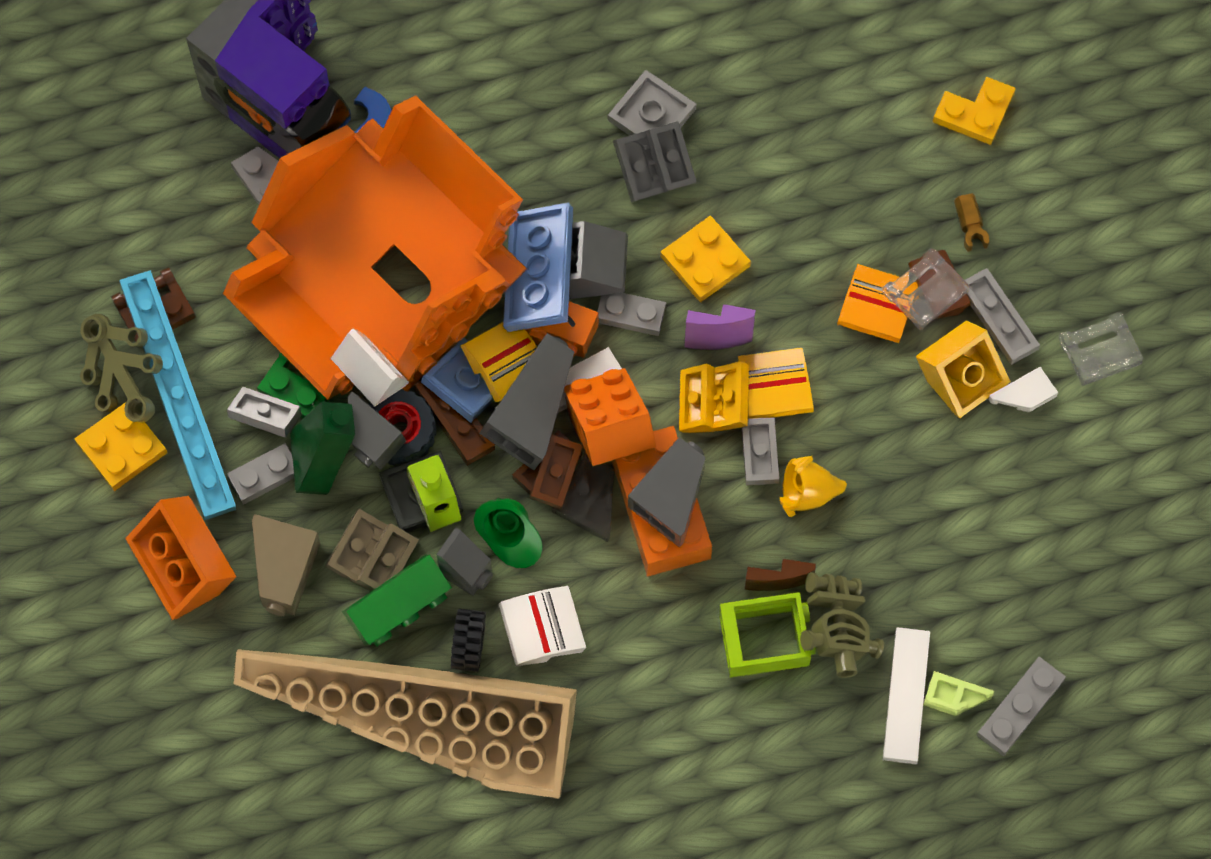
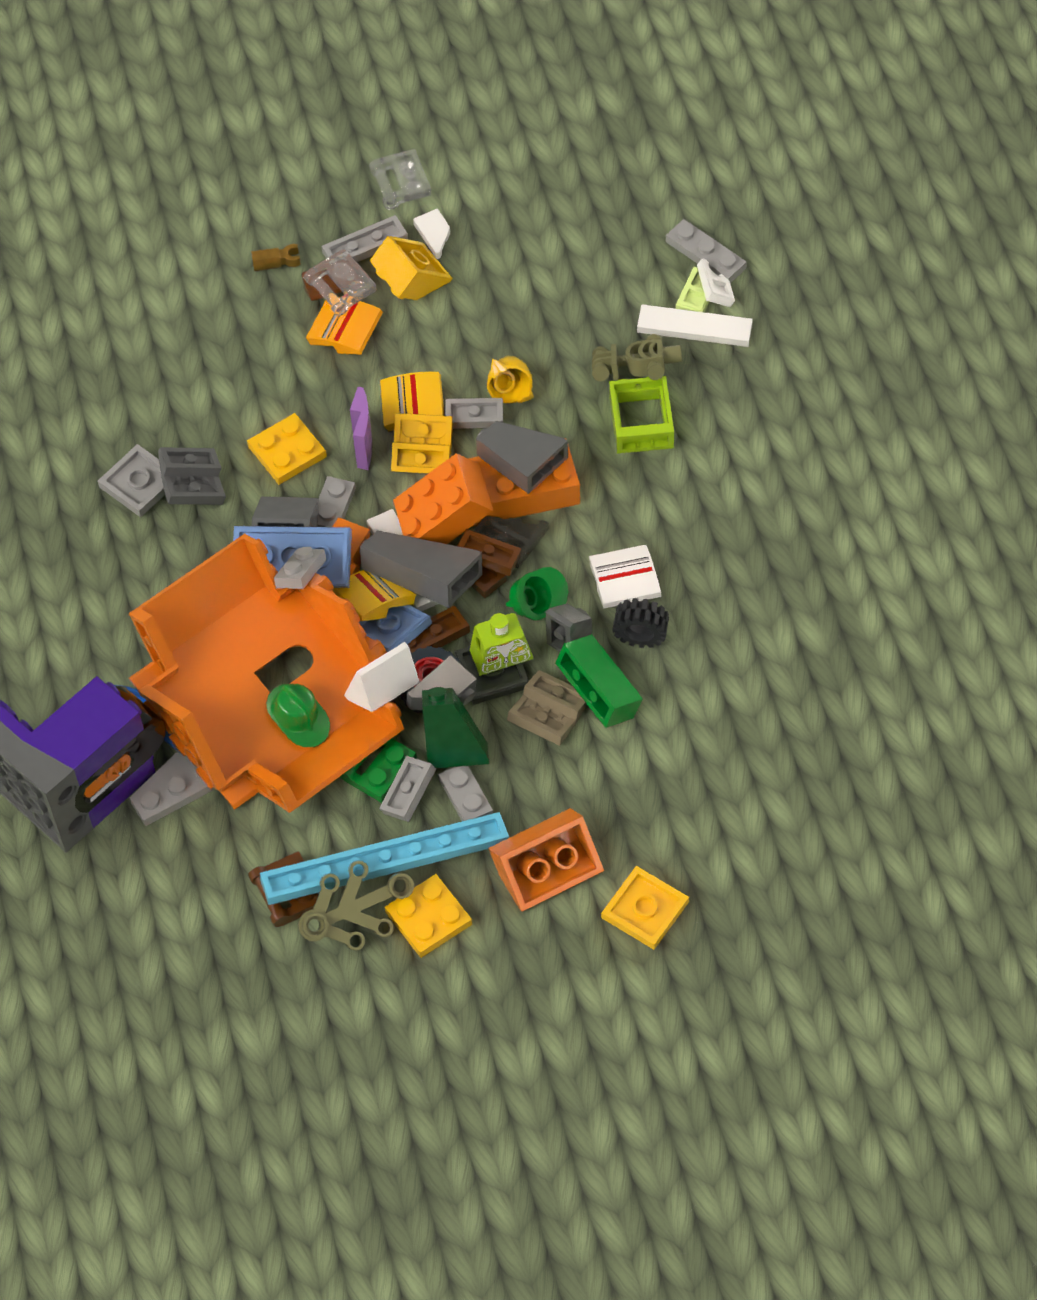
camera: 85 degrees left, 10 degrees down
(122, 660) = (645, 907): none -> yellow plate
(282, 562) = (557, 775): dark tan slope -> none
(348, 294) = (298, 714): none -> green piece
(478, 726) = (713, 628): tan wedge -> none
(502, 268) = (300, 568): none -> light grey plate
(791, 575) = (588, 402): reddish brown slope -> none
(963, 716) = (716, 288): none -> white tile
(977, 118) = (174, 249): yellow plate -> none

